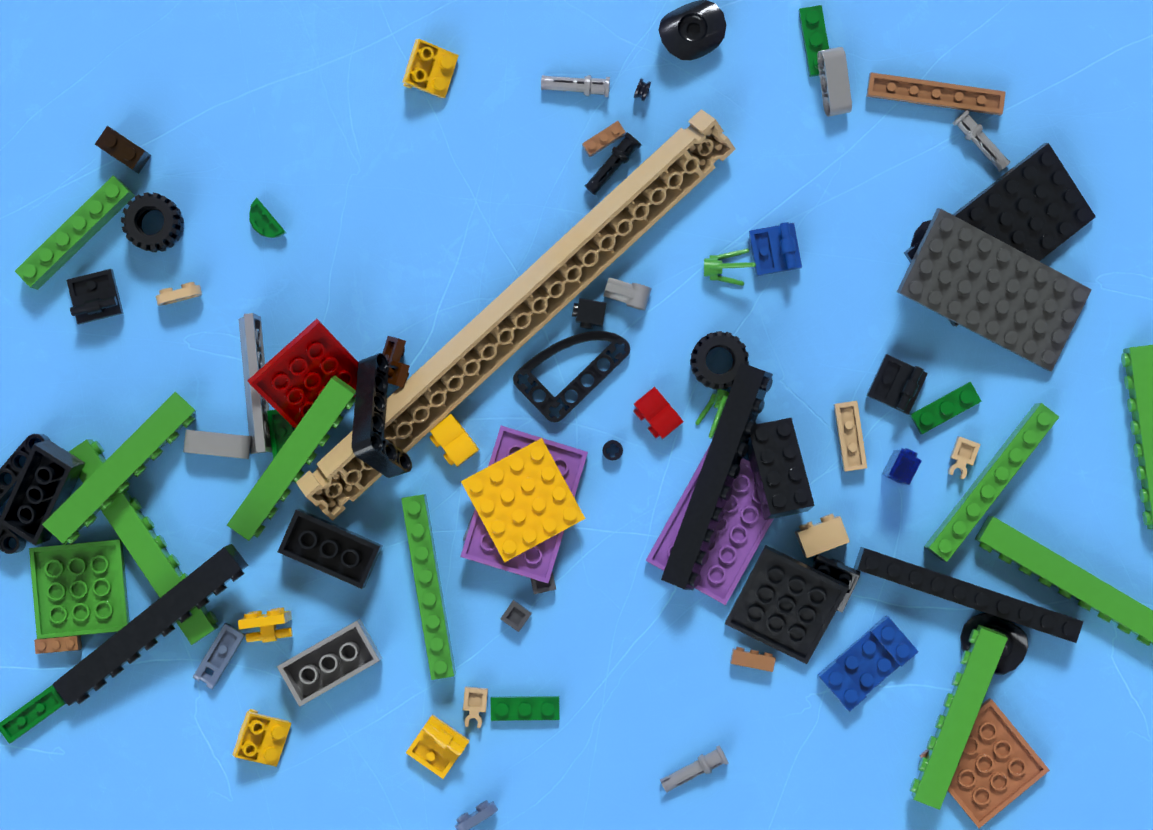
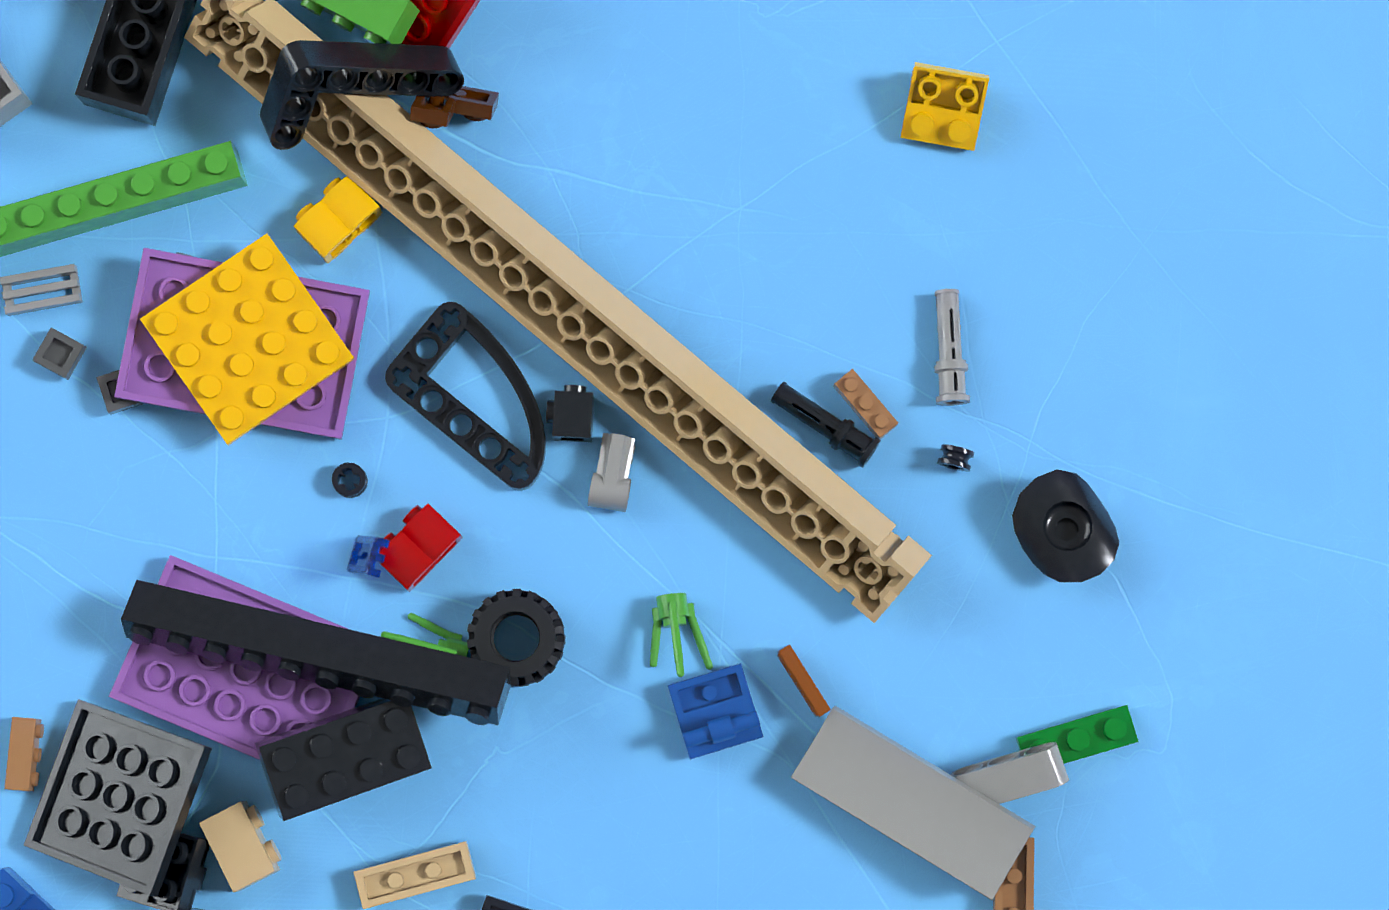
camera: 80 degrees right, 5 degrees down
(476, 643) = (39, 275): none -> light grey tile
(663, 437) = (370, 557): none -> clear blue tile
(764, 195) = (803, 681): none -> dark orange tile
(843, 139) = (913, 802): none -> light grey arch

